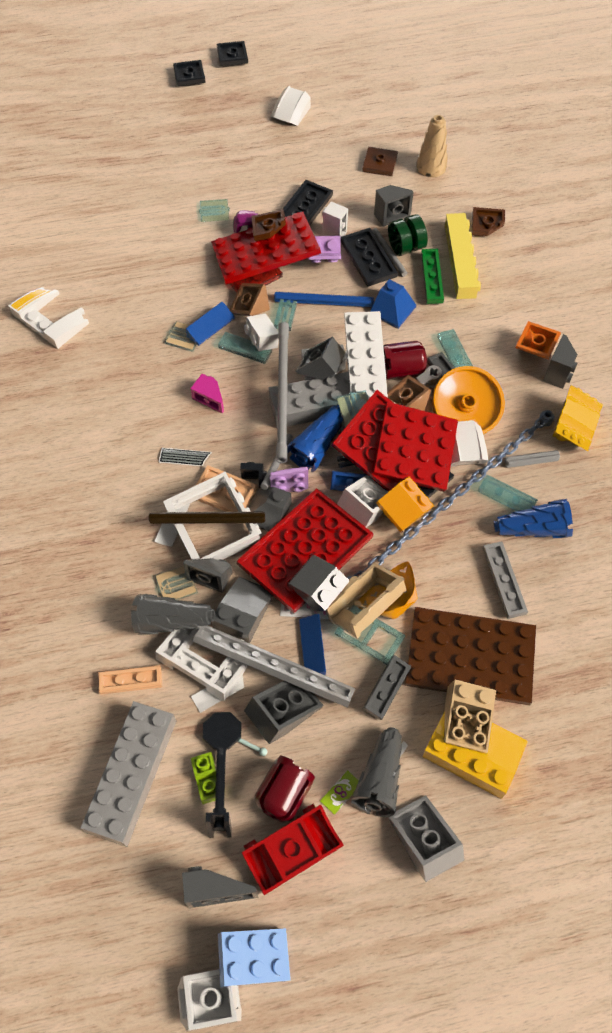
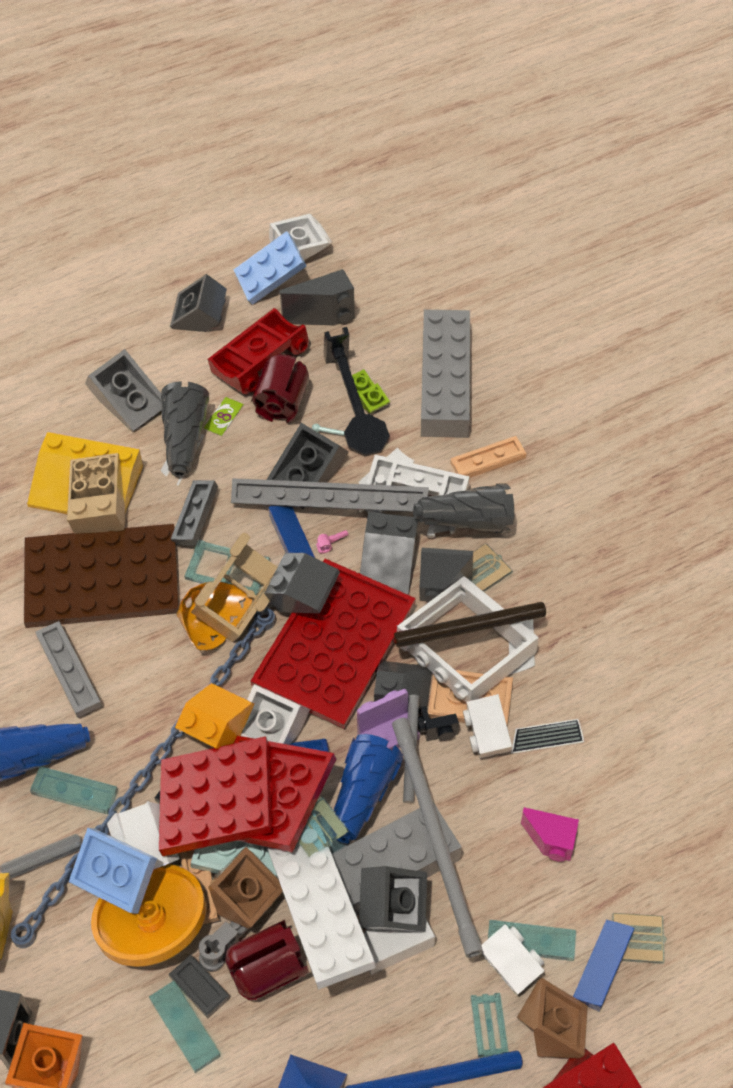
camera: 165 degrees right, 5 degrees down
(222, 457) = (488, 726): none -> white brick
(289, 635) = (324, 542): none -> bright pink hand
(338, 931) = (199, 305): none -> dark grey slope
(488, 424) = (112, 870): none -> light blue plate

